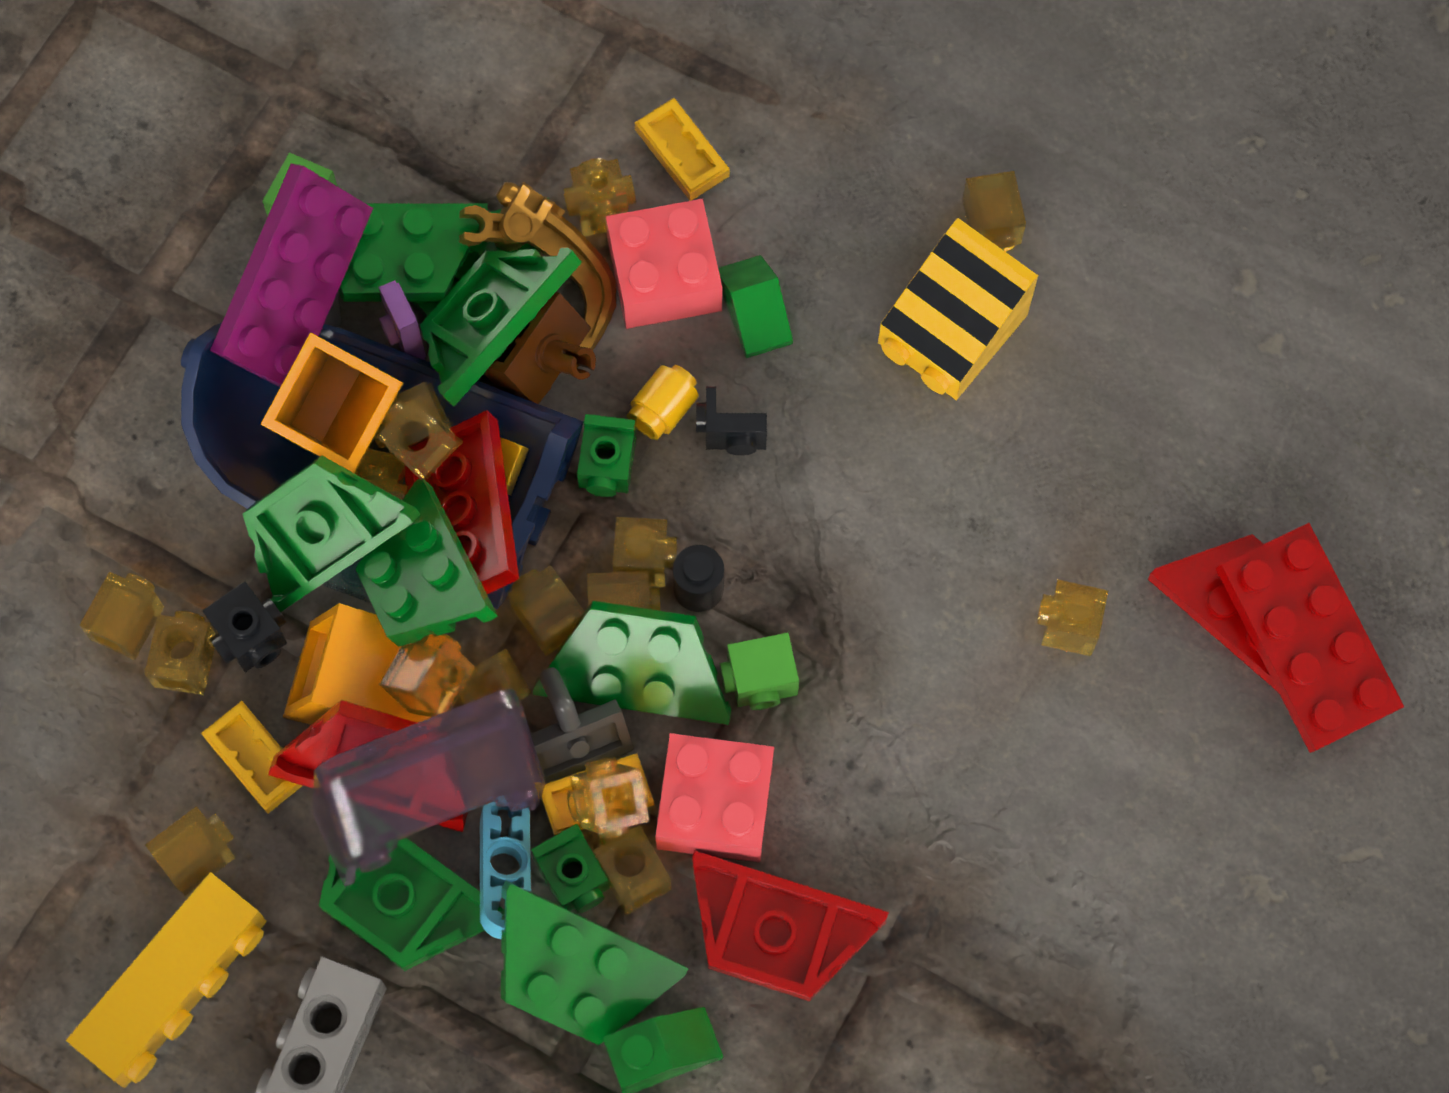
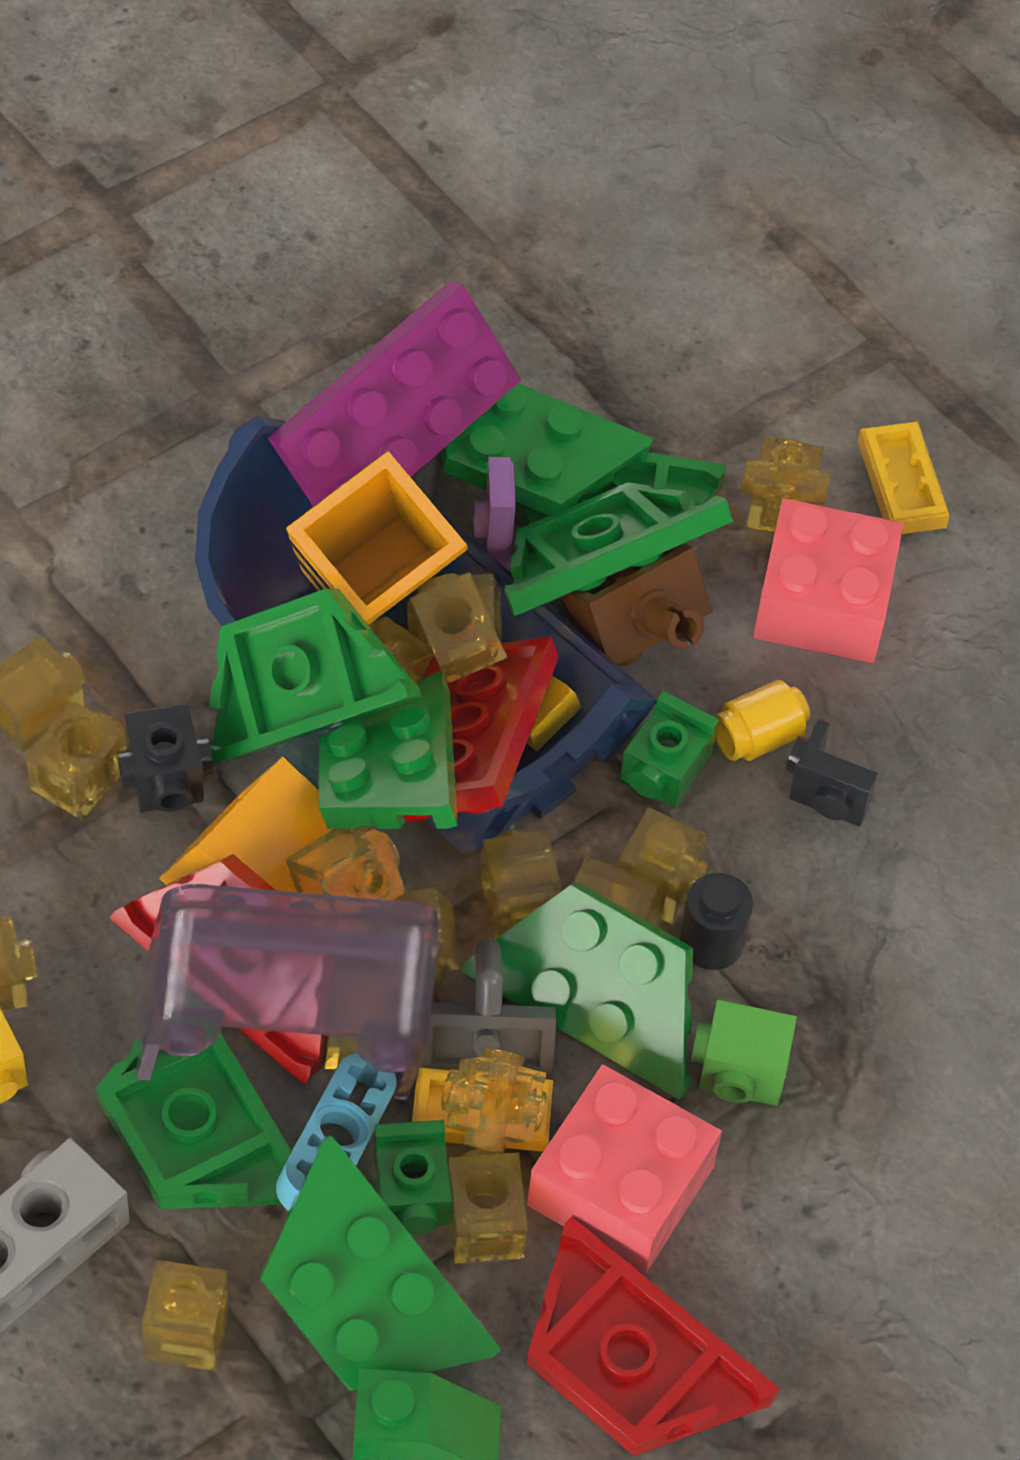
camera: 20 degrees right, 15 degrees down
(249, 753) = (98, 884): yellow plate -> none
(462, 1045) = (185, 1315): none -> clear yellow brick
(540, 222) = (703, 471): pearl gold piece -> none
(755, 305) = (915, 671): green slope -> none

